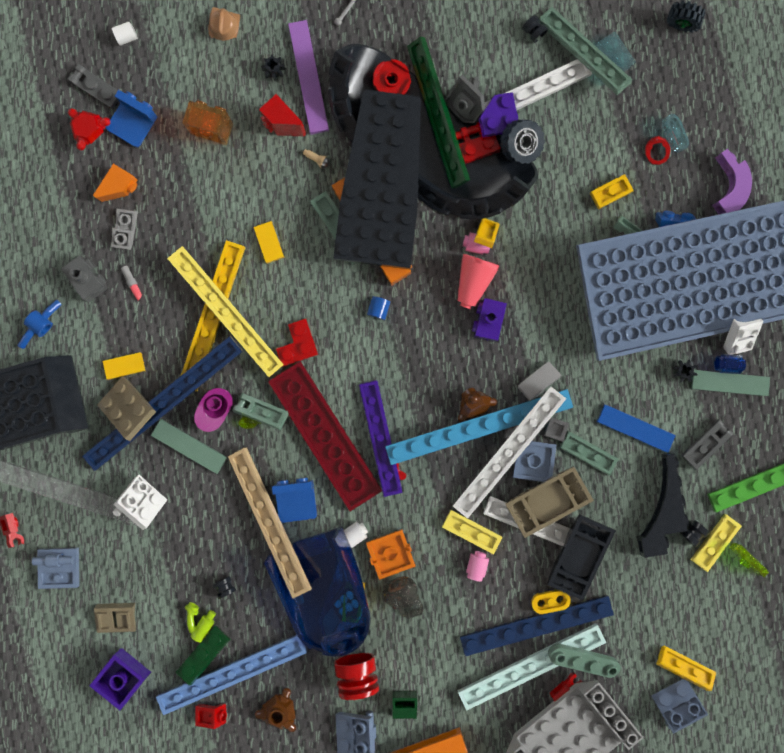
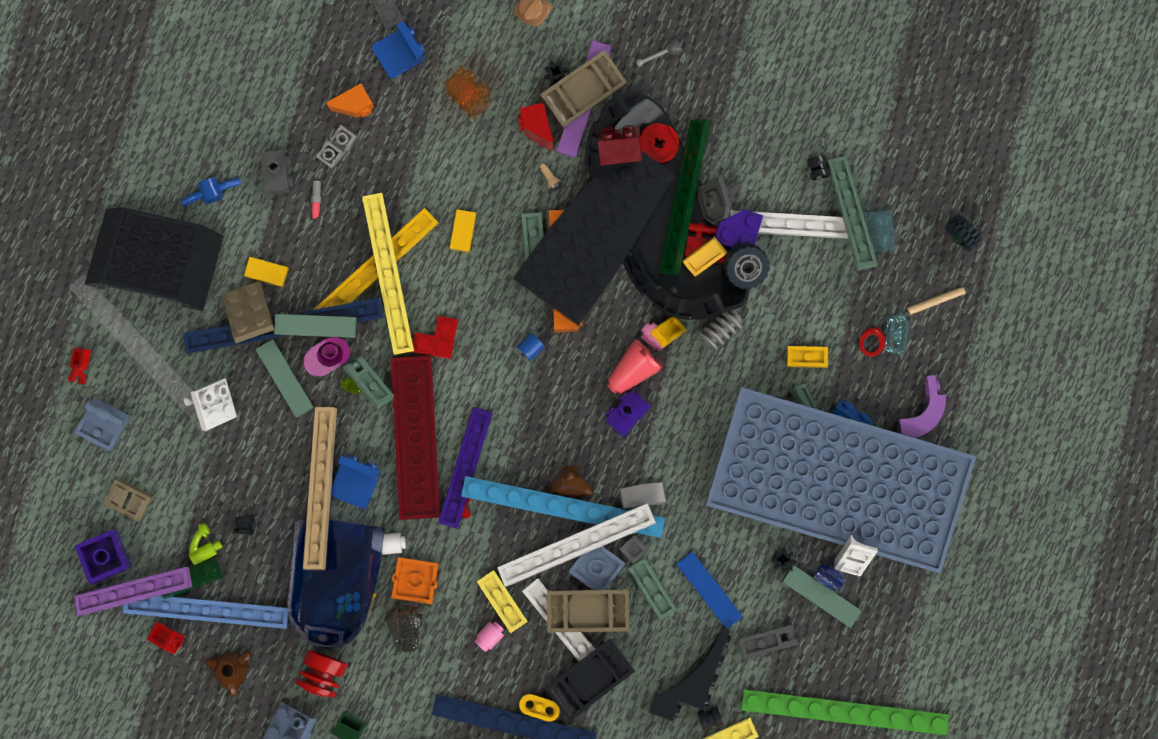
camera: 25 degrees right, 5 degrees down
(86, 127) = (355, 37): red rock -> none
(161, 693) = (133, 591): none -> medium lavender tile
(189, 389) = (315, 325): none -> sand green tile
(303, 66) = (583, 88): none -> dark tan slope
(362, 92) = (620, 145): none -> dark red brick
(483, 153) = (704, 256): none -> yellow tile
(528, 207) = (721, 329): none -> light grey piece
(690, 88) = (936, 300): none -> tan bar

